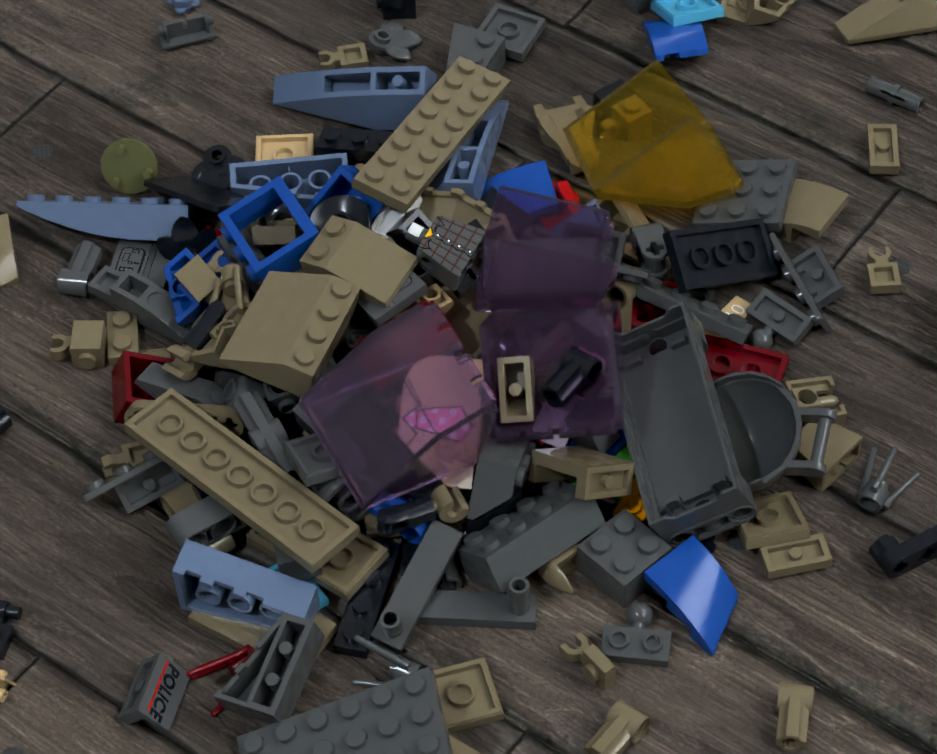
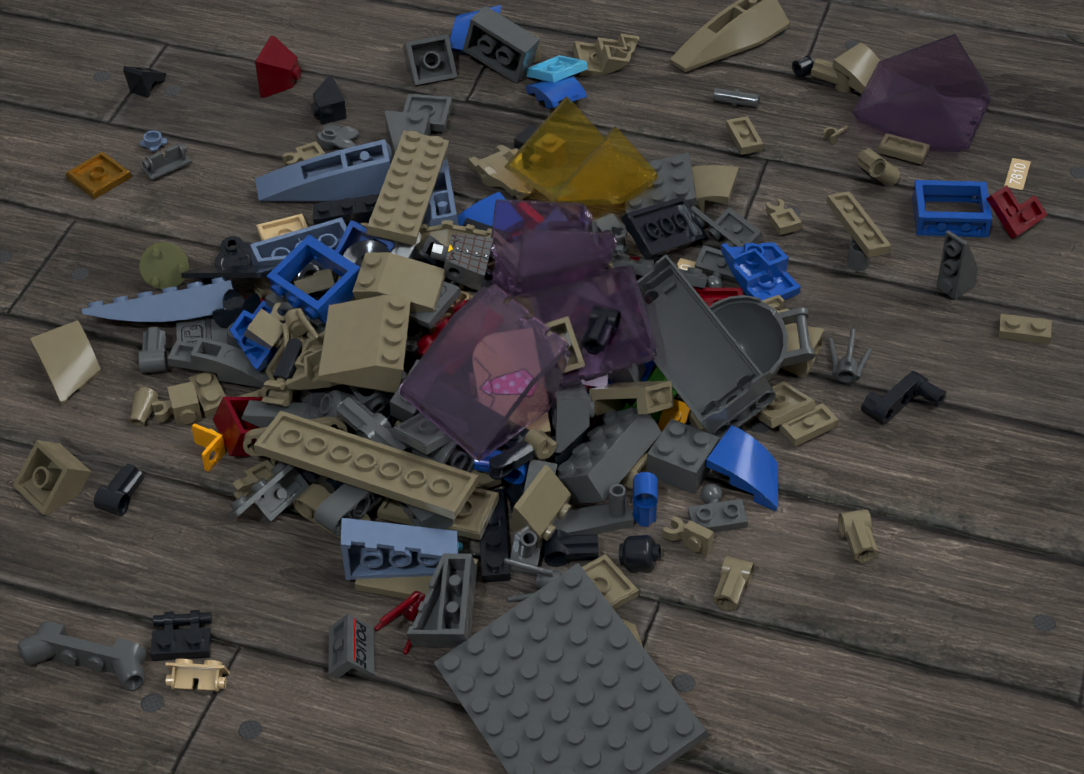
camera: 20 degrees left, 5 degrees down
(41, 336) = (142, 406): none -> dark tan cone
(102, 400) = (212, 442): none -> light orange bracket
(107, 30) = (98, 175): none -> pearl gold tile
(419, 583) = (541, 506): none -> dark tan slope
(438, 636) = (565, 547): none -> black piece
(521, 668) = (639, 553): none -> black head
(552, 602) = (645, 498): none -> blue piece
(821, 339) = (761, 270): none -> blue slope

